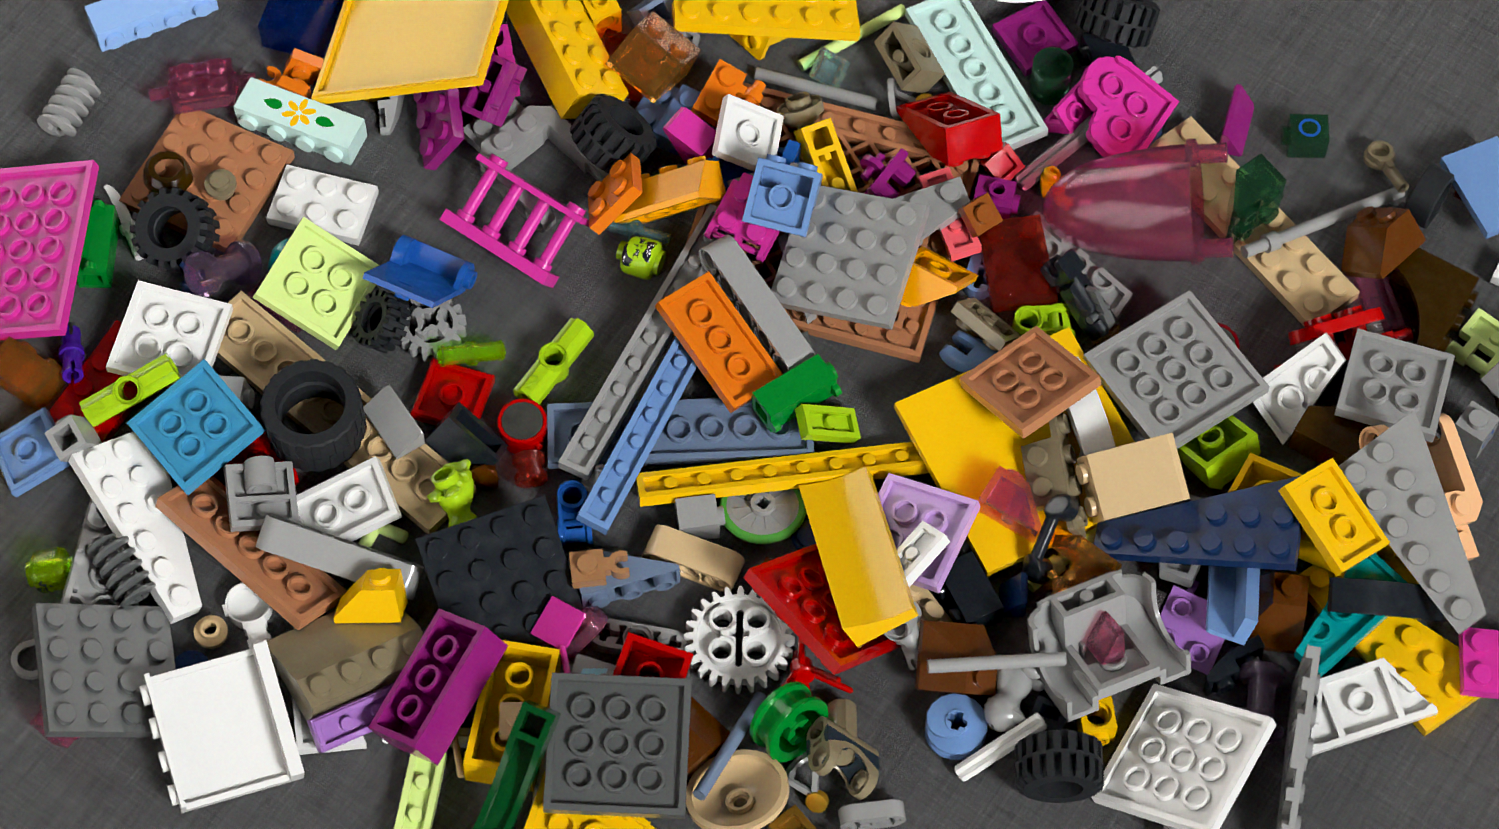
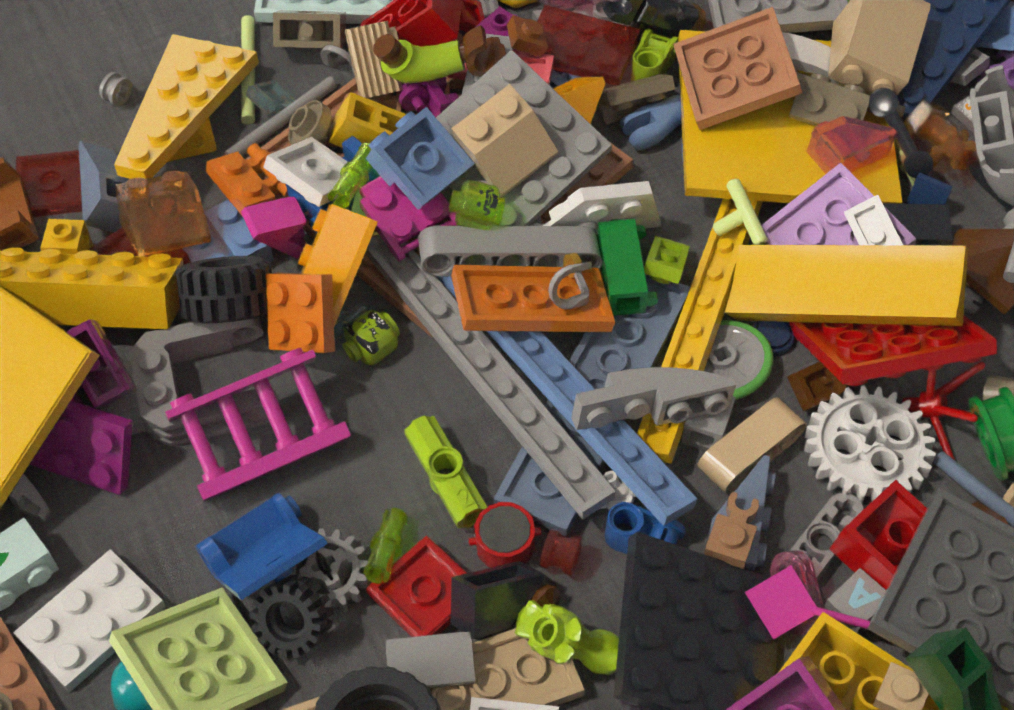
camera: 60 degrees left, 5 degrees down
(680, 467) = (659, 391): none -> light grey slope
(732, 371) = (572, 268): none -> light grey piece
(743, 162) = (352, 177): none -> clear neon green pin
(771, 259) = (477, 205): none -> clear neon green head
(834, 245) = (505, 140): none -> tan slope
(834, 350) = (607, 202): none -> white wing
(888, 118) = (367, 67): none -> tan brick
(892, 455) = (743, 214): none -> yellowish green piece
(899, 159) = (426, 63): none -> piece

